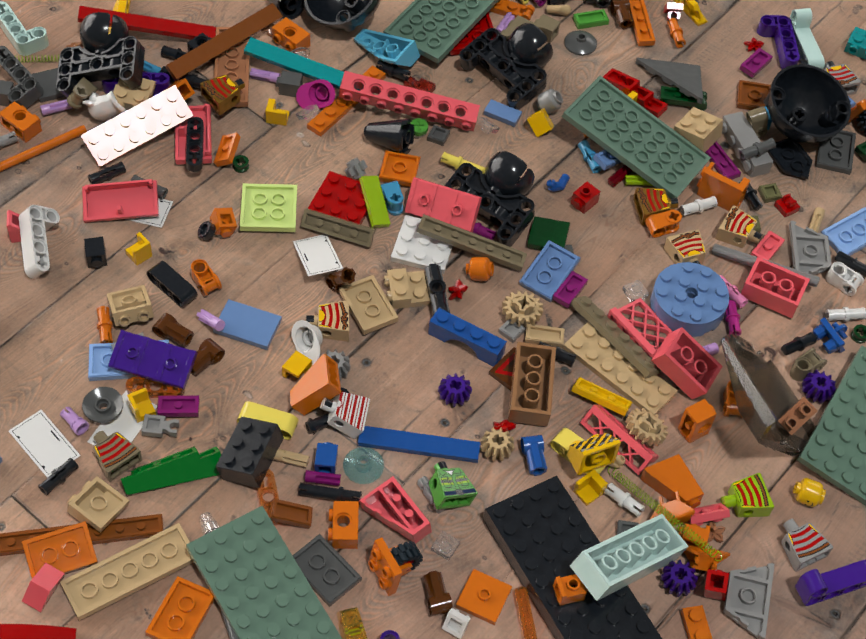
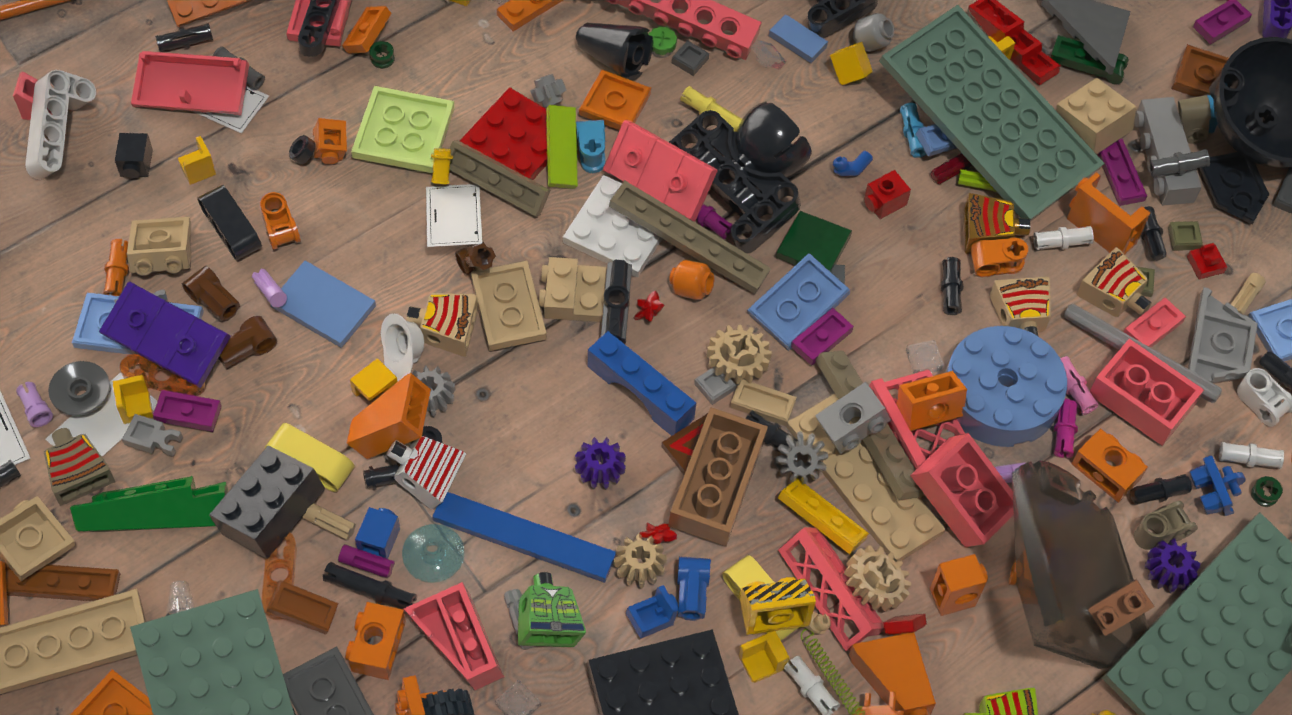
camera: 15 degrees right, 5 degrees up
(301, 227) = (441, 165): none -> yellow pin
(515, 474) = (653, 613): none -> blue bracket
(578, 370) = (801, 468): none -> light grey gear
(607, 323) = (857, 403): none -> light grey brick
(640, 245) = (952, 286): none -> black pin
(650, 314) = (931, 400): none -> orange brick
(671, 450) = (905, 624): none -> red tile
(765, 334) = (1114, 480): none -> orange brick

